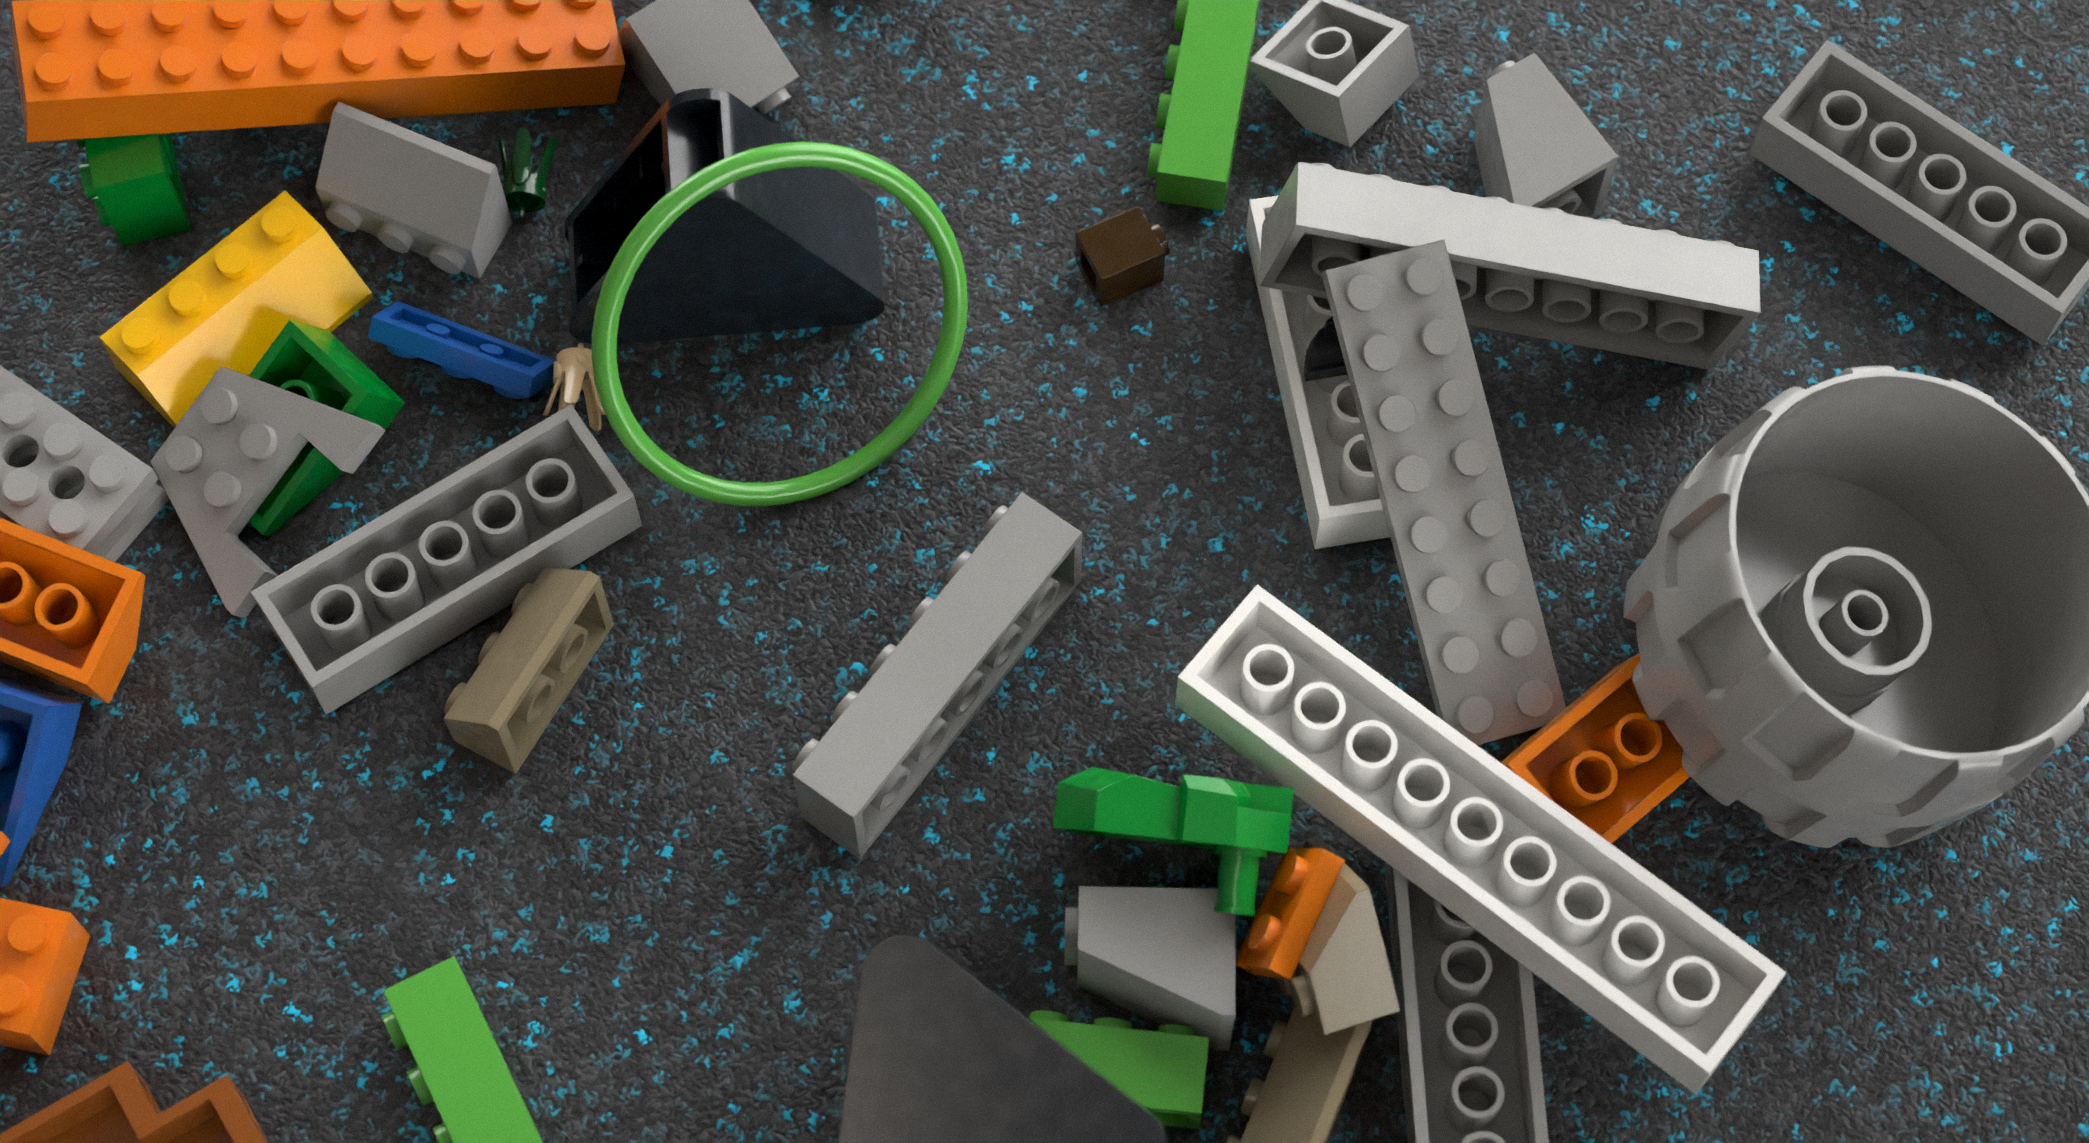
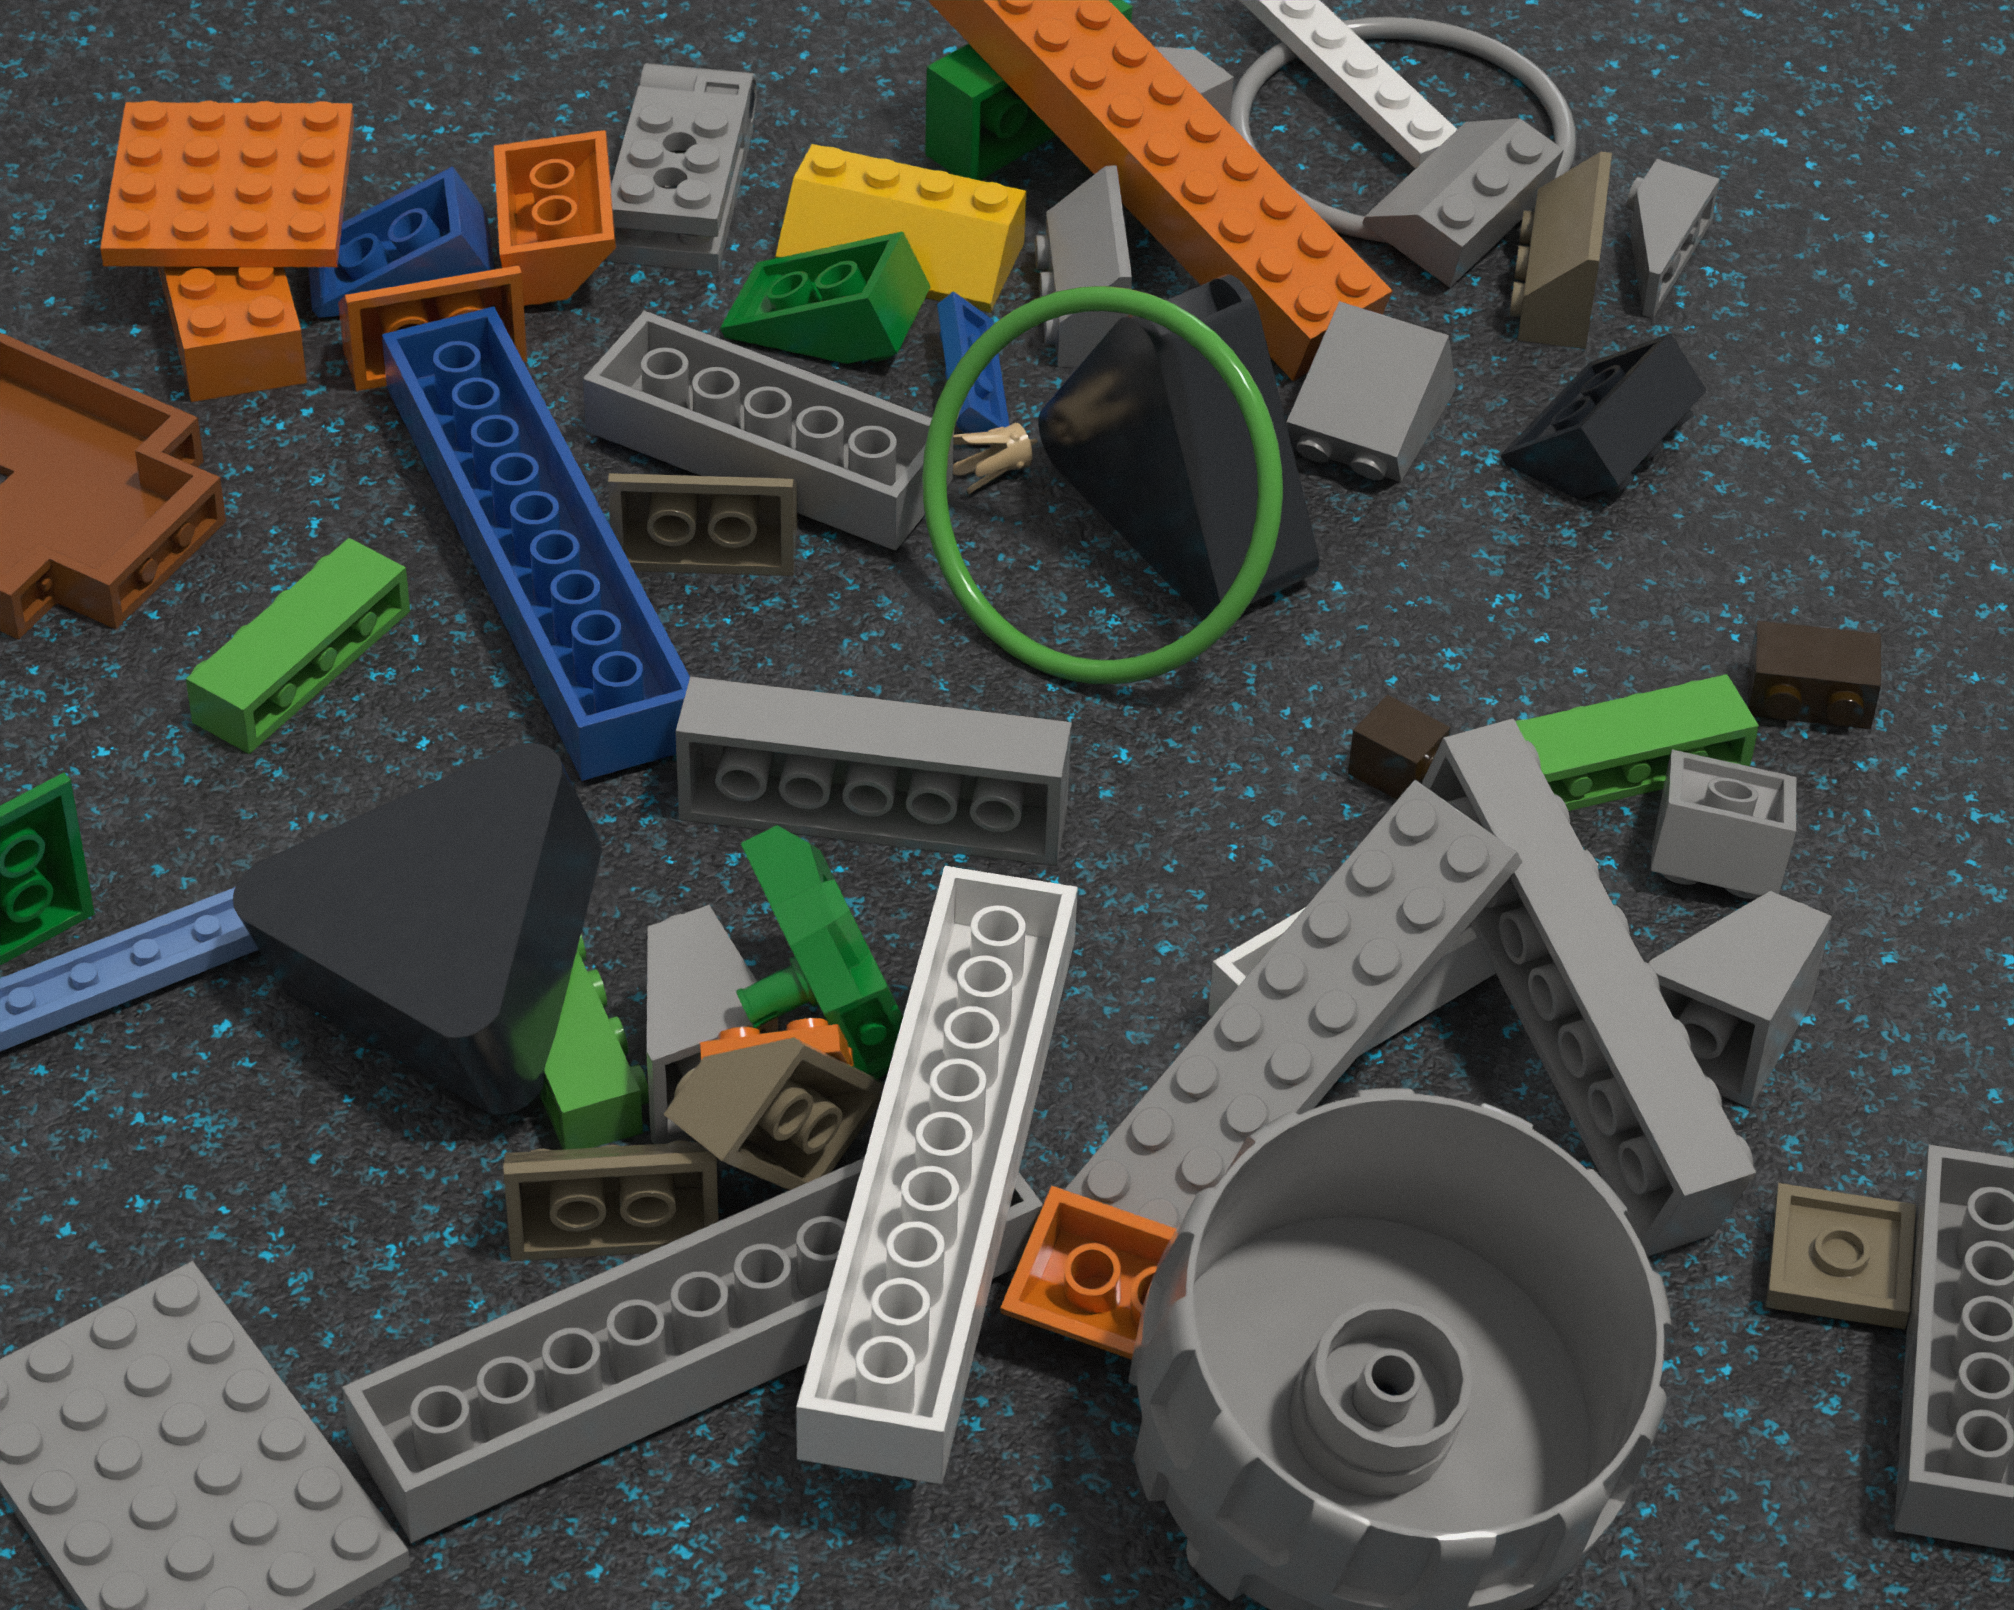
camera: 60 degrees right, 20 degrees down
(115, 786) = (385, 310): none -> orange slope
(231, 457) = (766, 268): light grey wing -> none
(466, 820) = (539, 541): none -> blue brick
(1798, 232) = (1841, 1256): none -> dark tan plate

